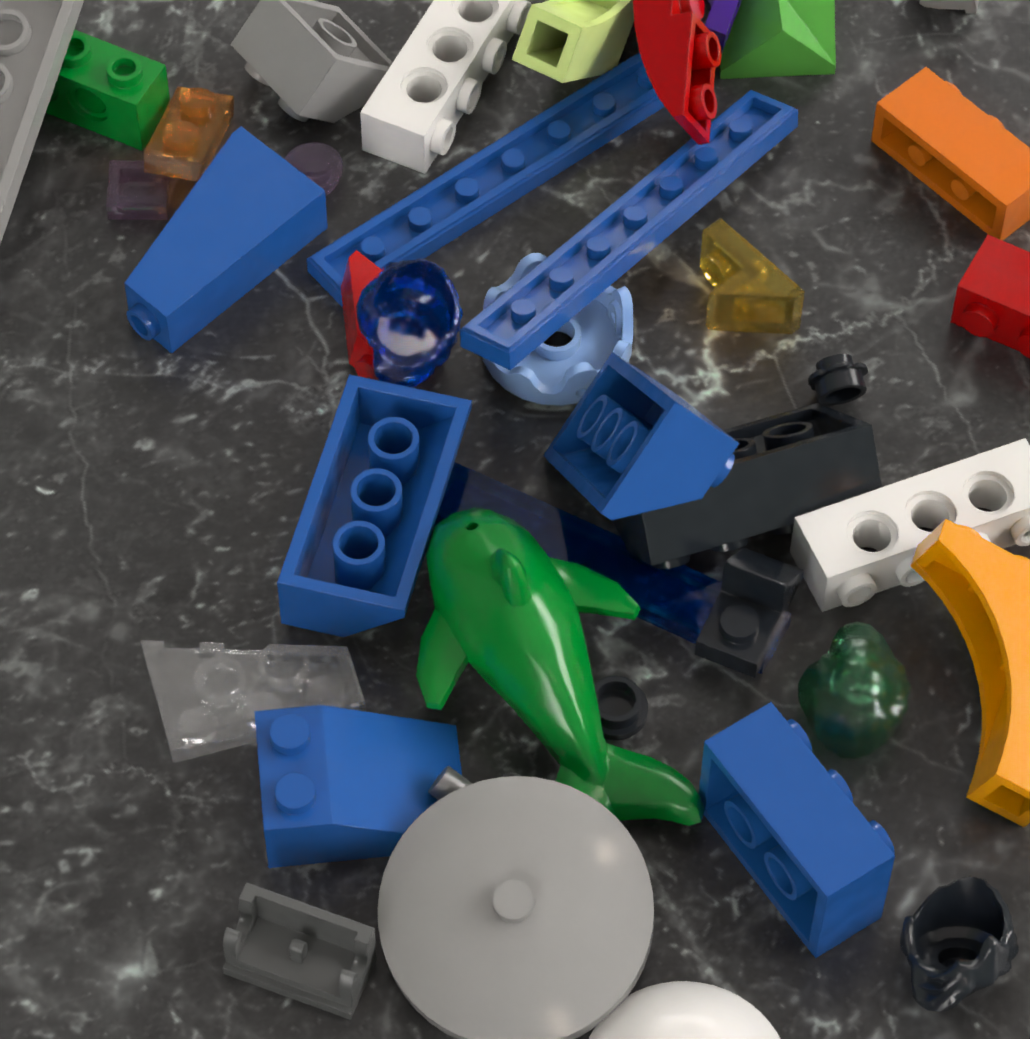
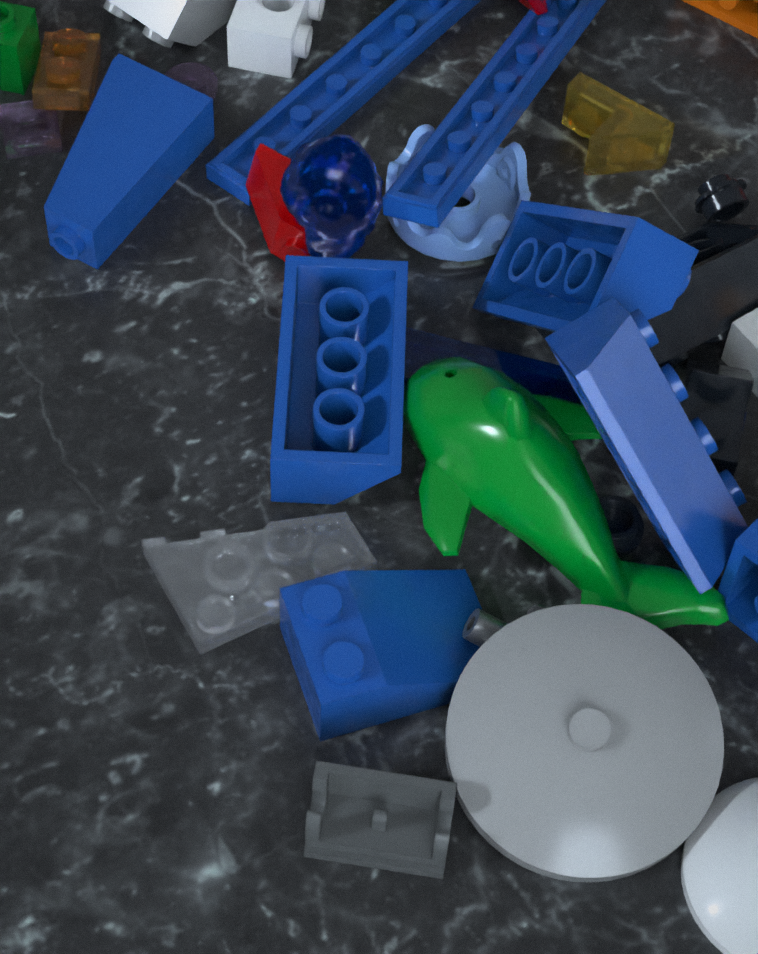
camera: 15 degrees left, 0 degrees up
(648, 625) = (652, 438): none -> blue slope

